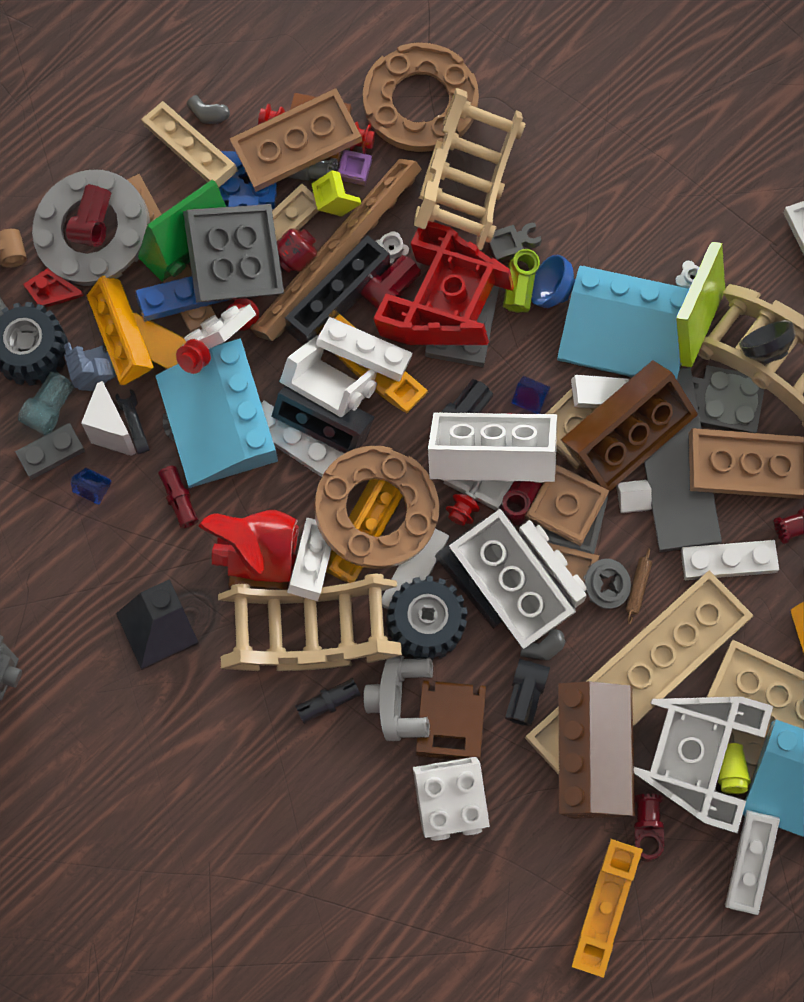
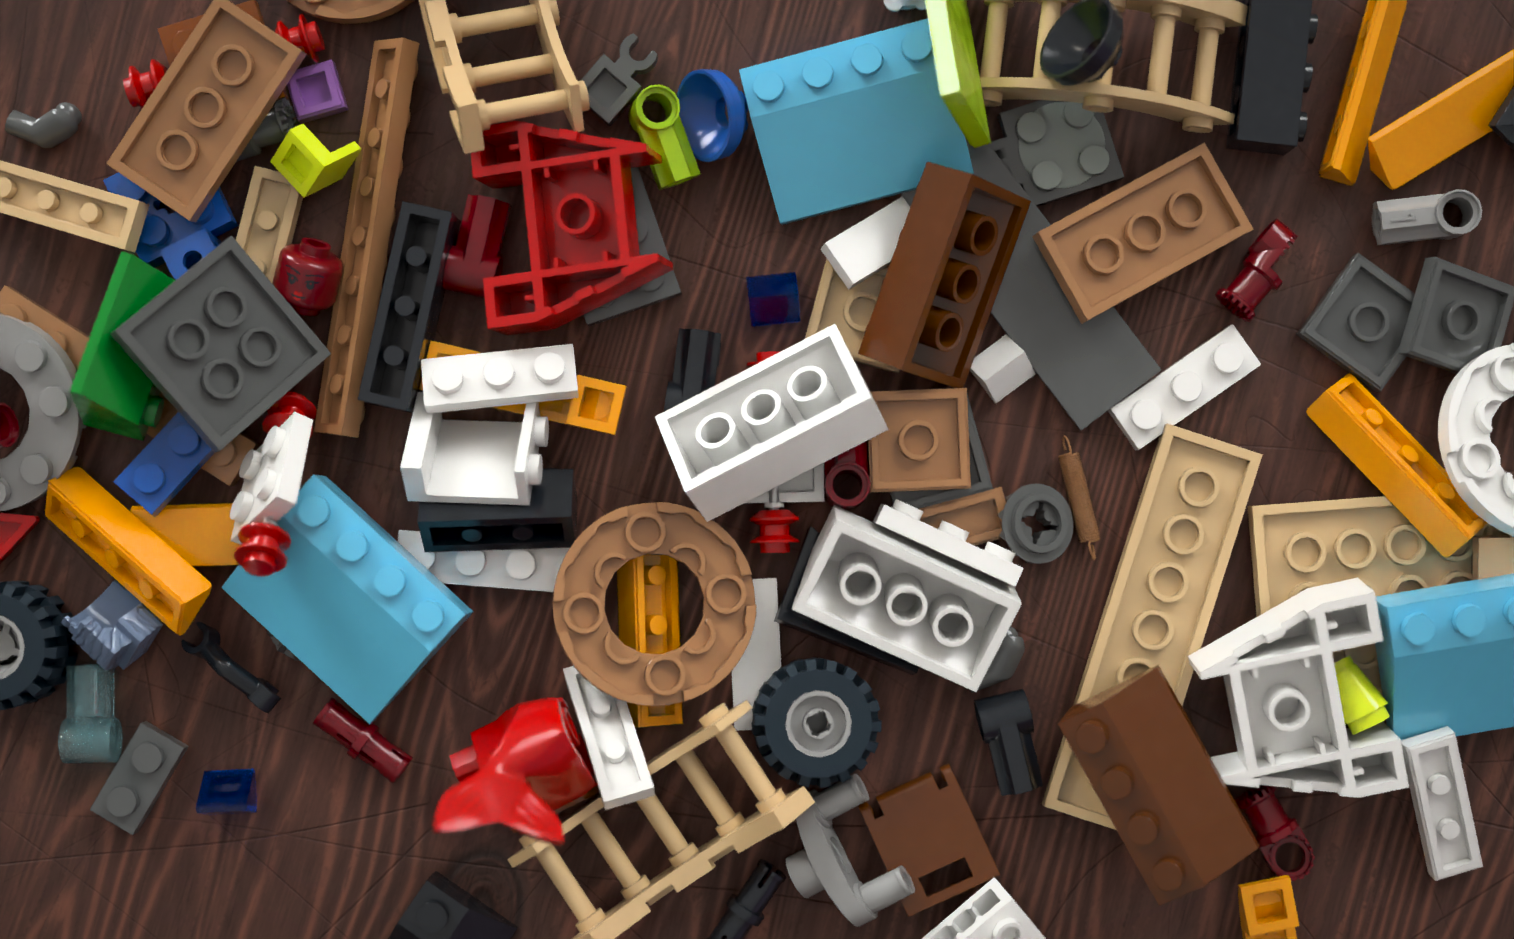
camera: 30 degrees left, 15 degrees up
(104, 423) = (193, 697): white slope -> none
(393, 239) = (439, 175): white plate -> none

